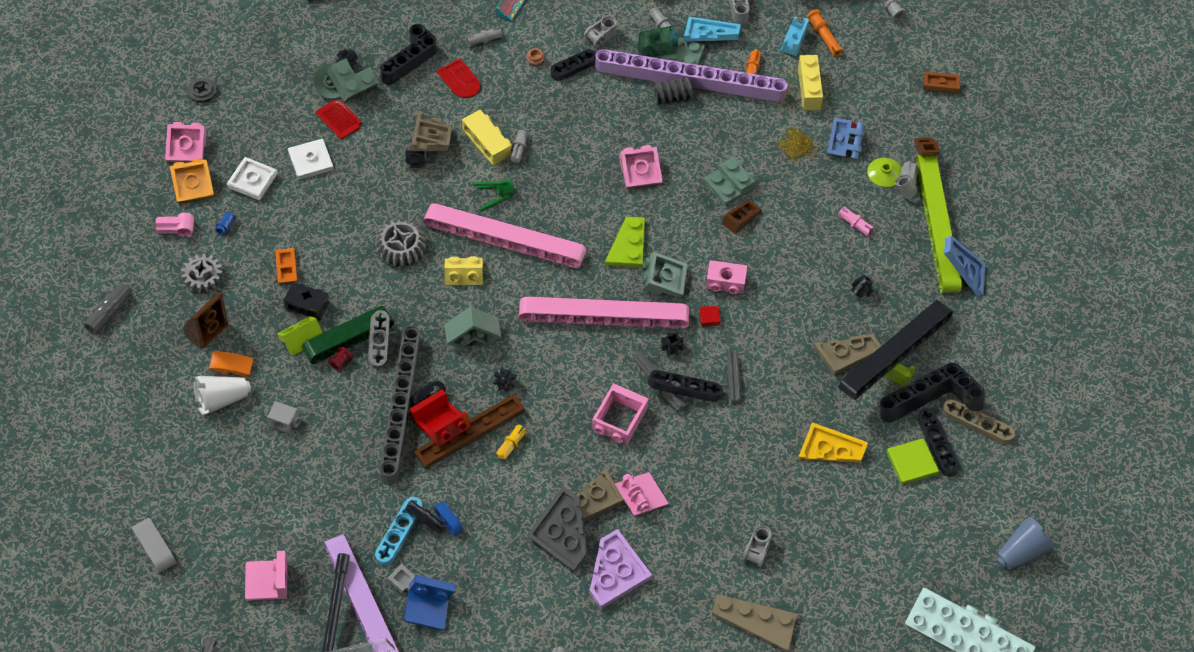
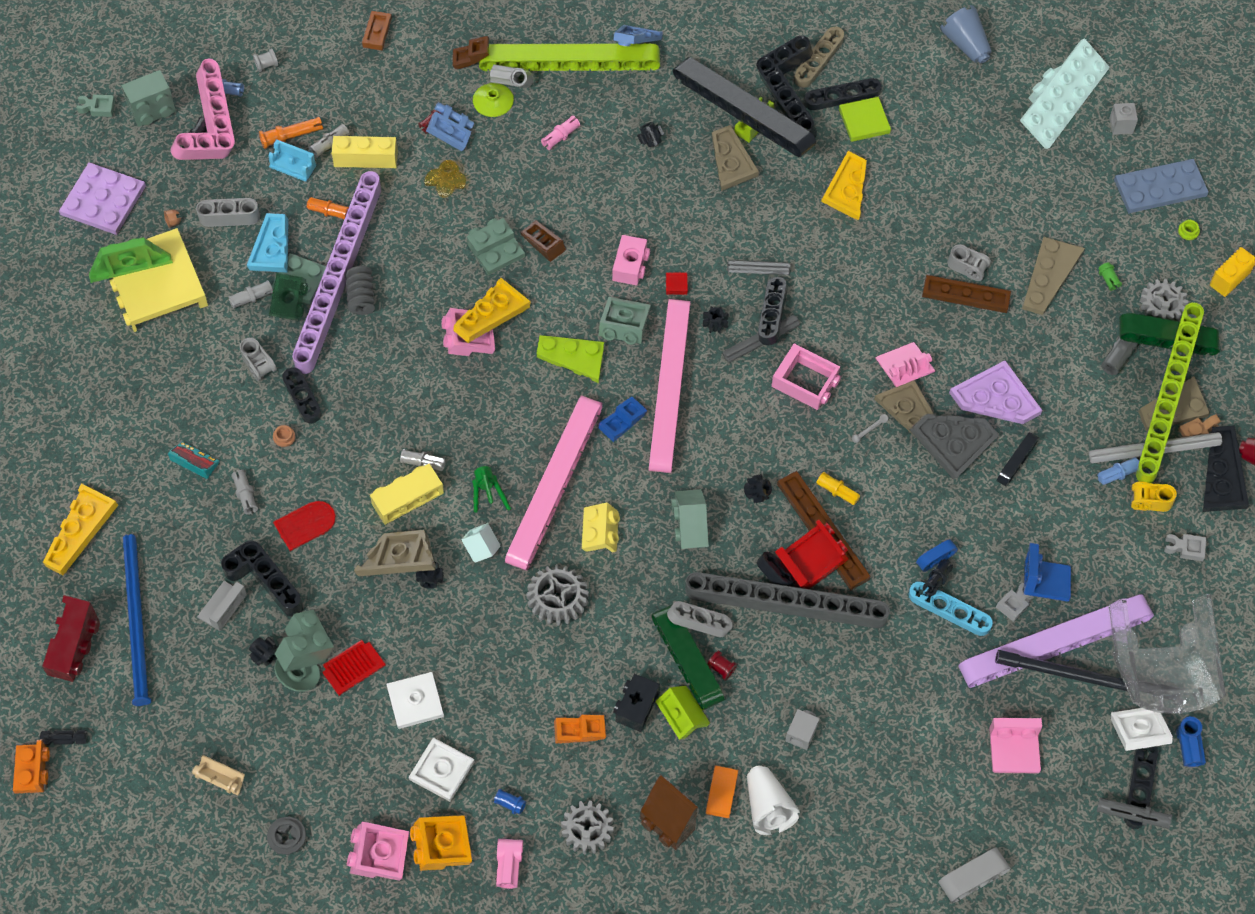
camera: 85 degrees left, 5 degrees up
(244, 49) = (219, 775): none -> tan hinge
(386, 34) = (222, 604): none -> light grey panel
(446, 189) = (481, 542): none -> light aqua panel
(547, 583) = (1017, 458): none -> black beam
(564, 458) = (883, 419): none -> light grey hinge
(567, 281) = (622, 419): none -> blue slope
(665, 183) = (495, 308): none -> yellow wing
(723, 545) = (966, 294): none -> reddish brown plate
(823, 62) = (326, 142): none -> light grey pin

